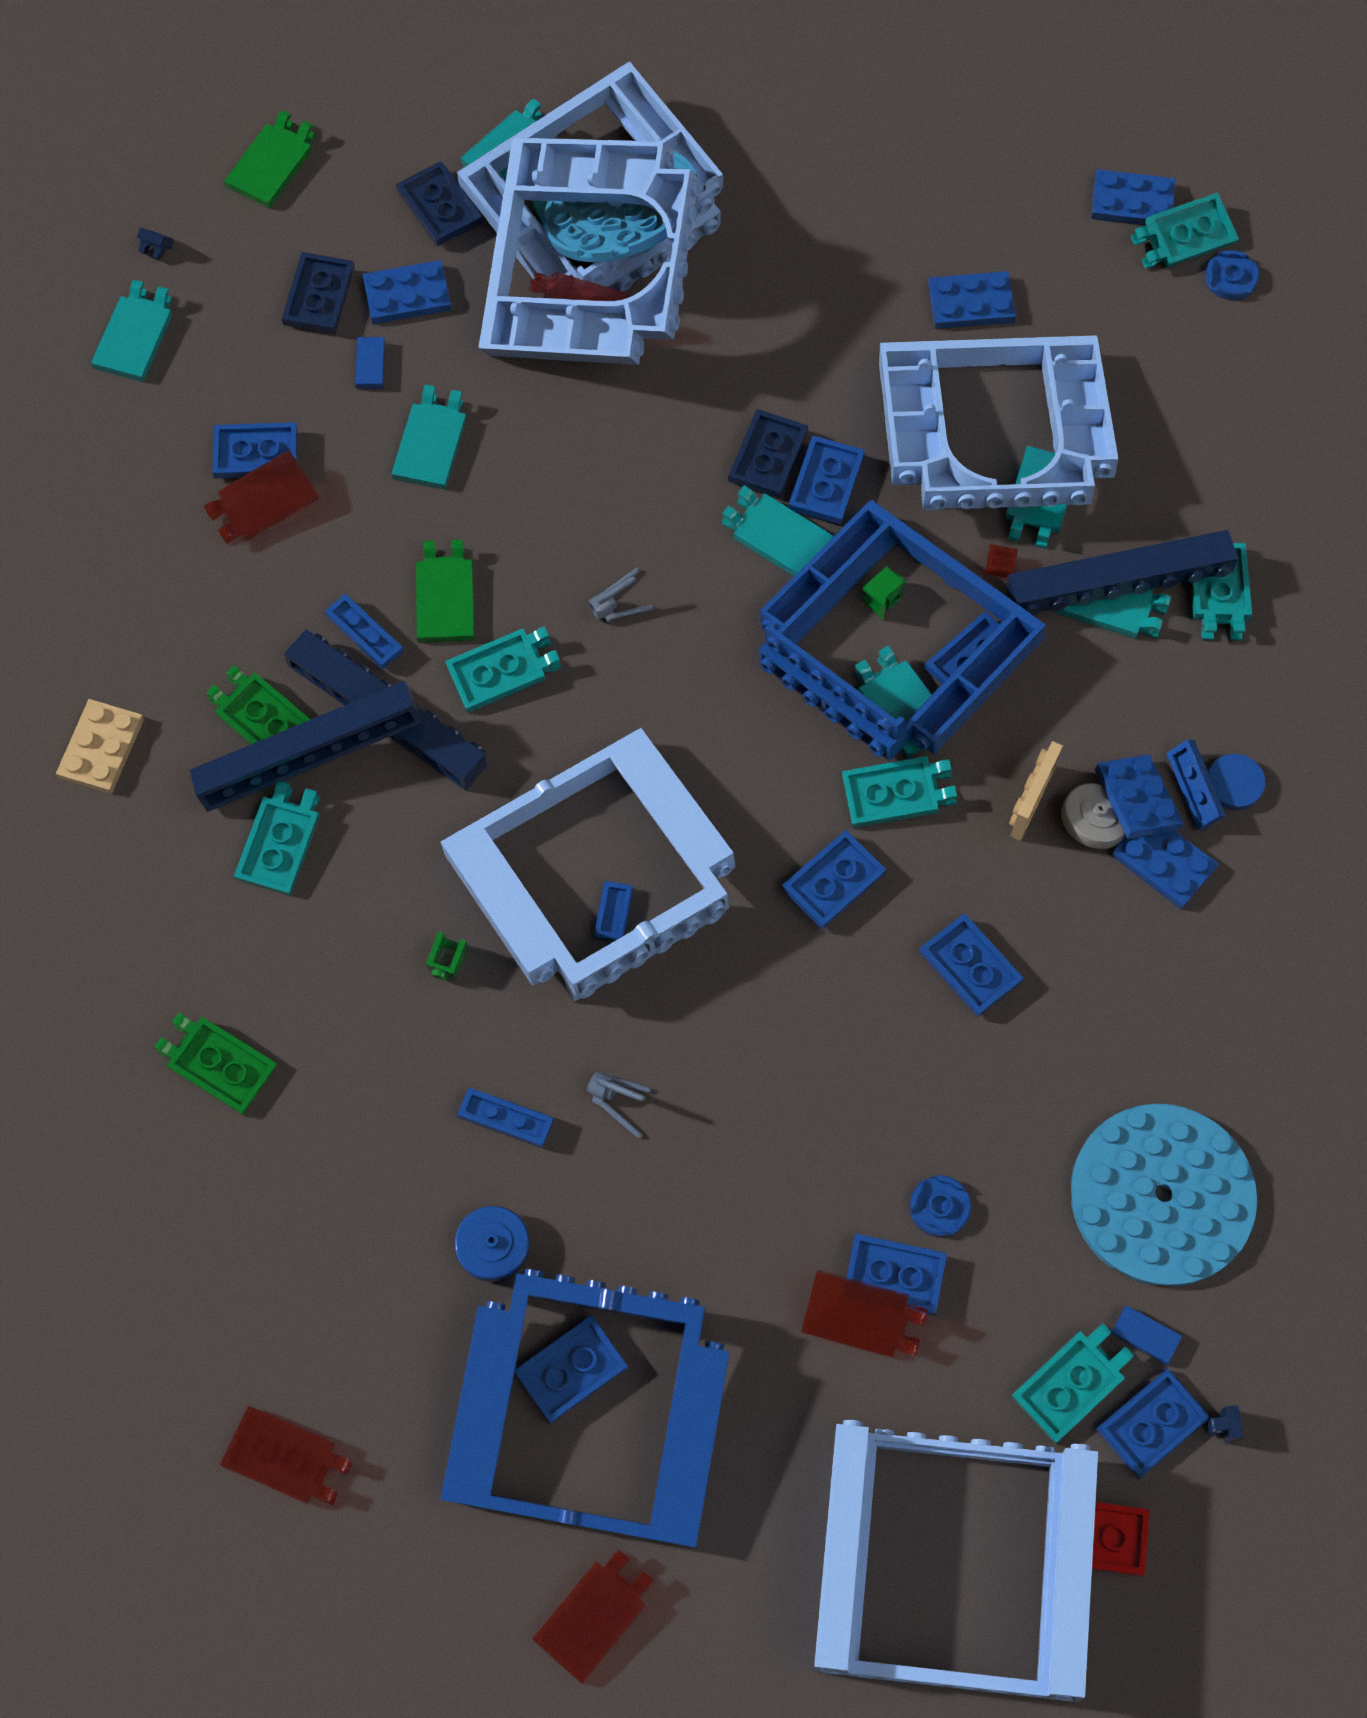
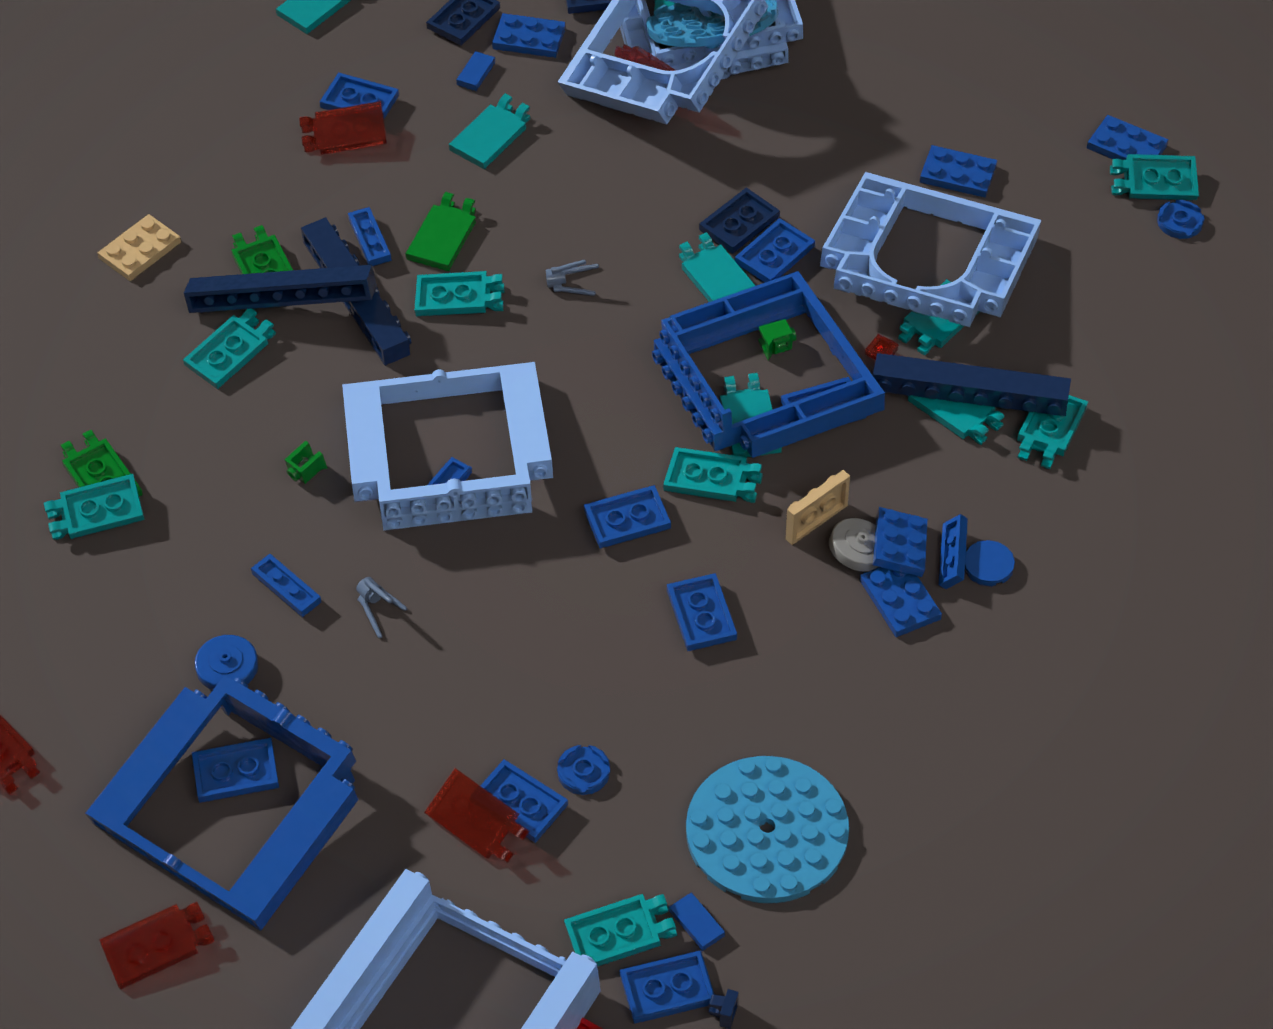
camera: 25 degrees right, 15 degrees down
(239, 1109) = (95, 508): none -> teal tile

